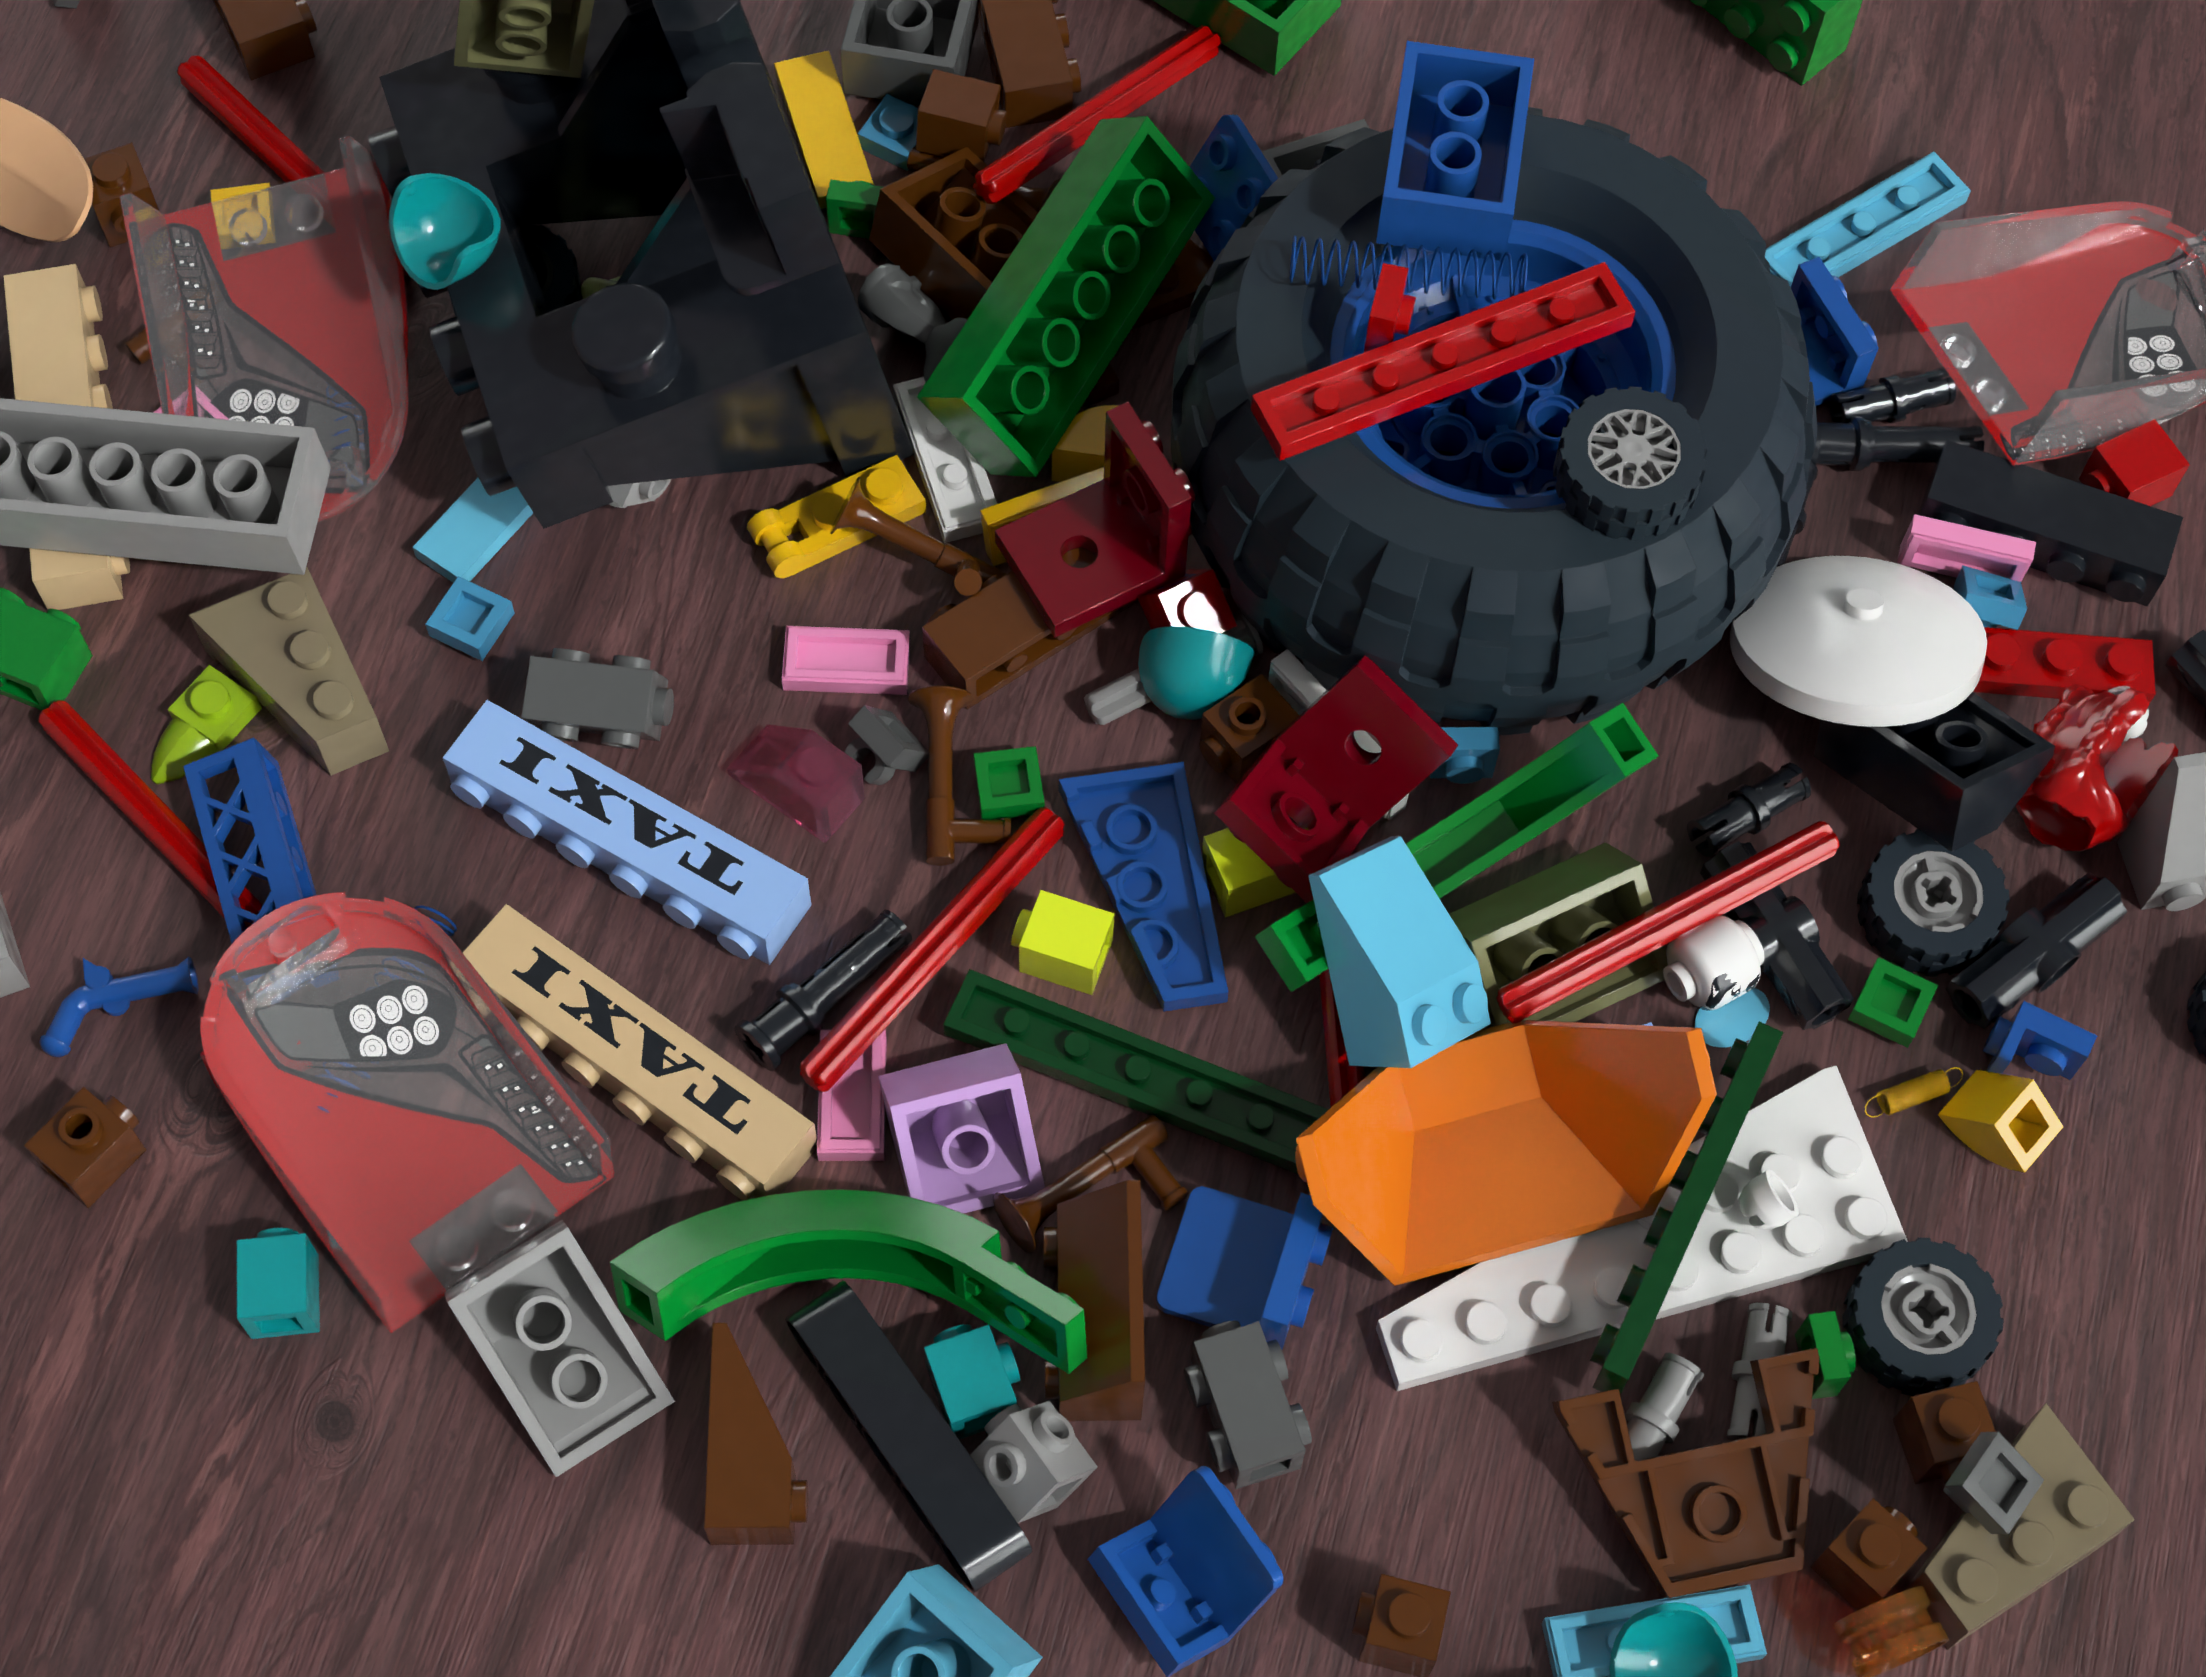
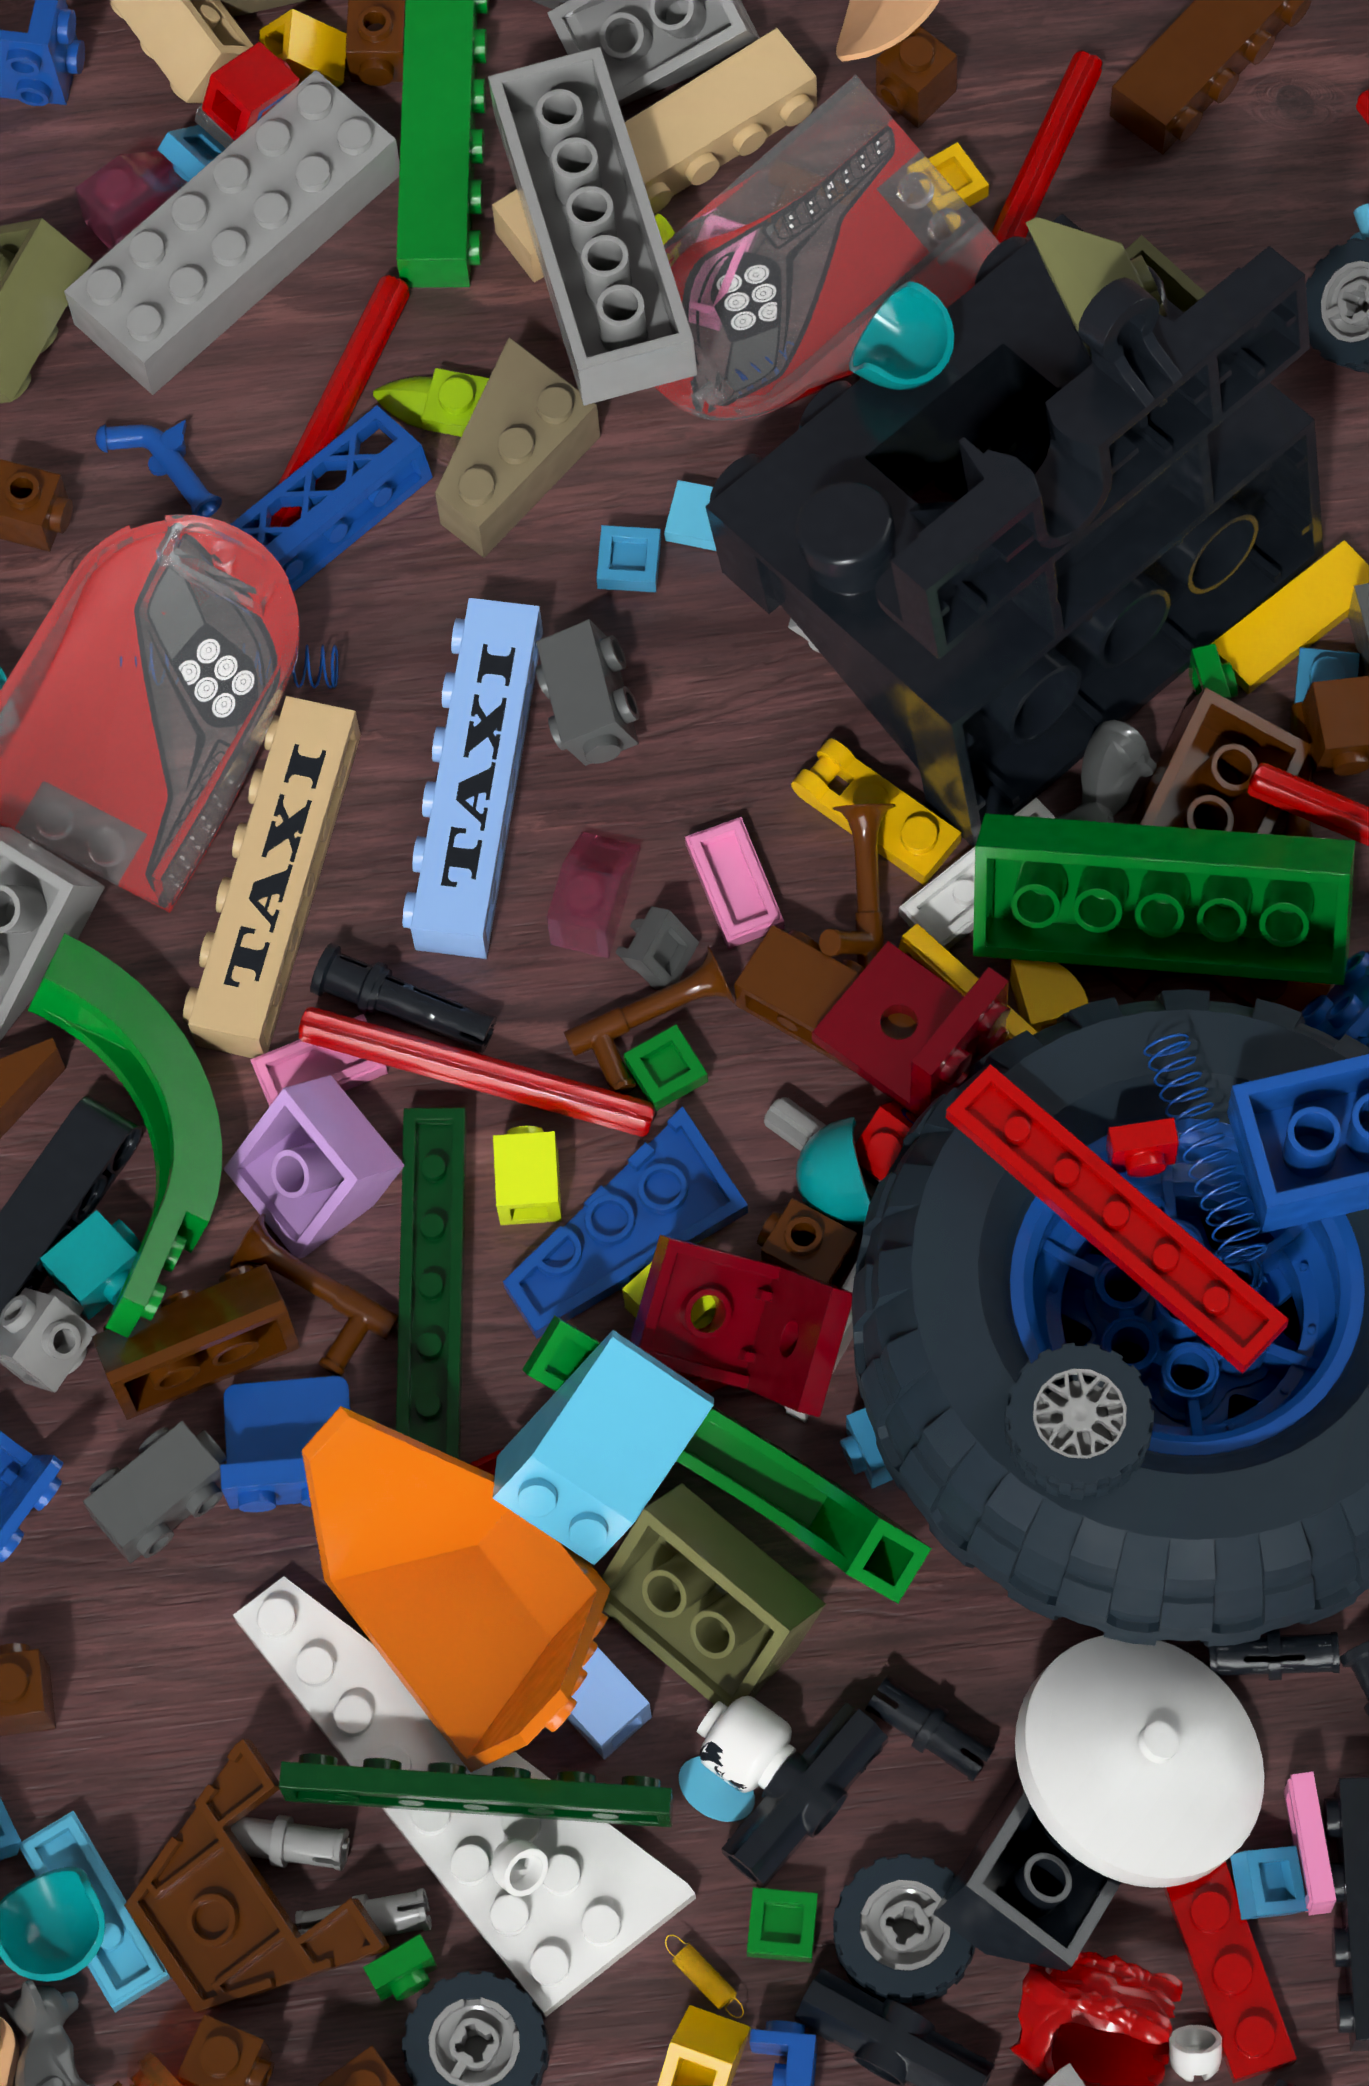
camera: 75 degrees right, 5 degrees up
(1667, 922) = (757, 1683): red axle -> none

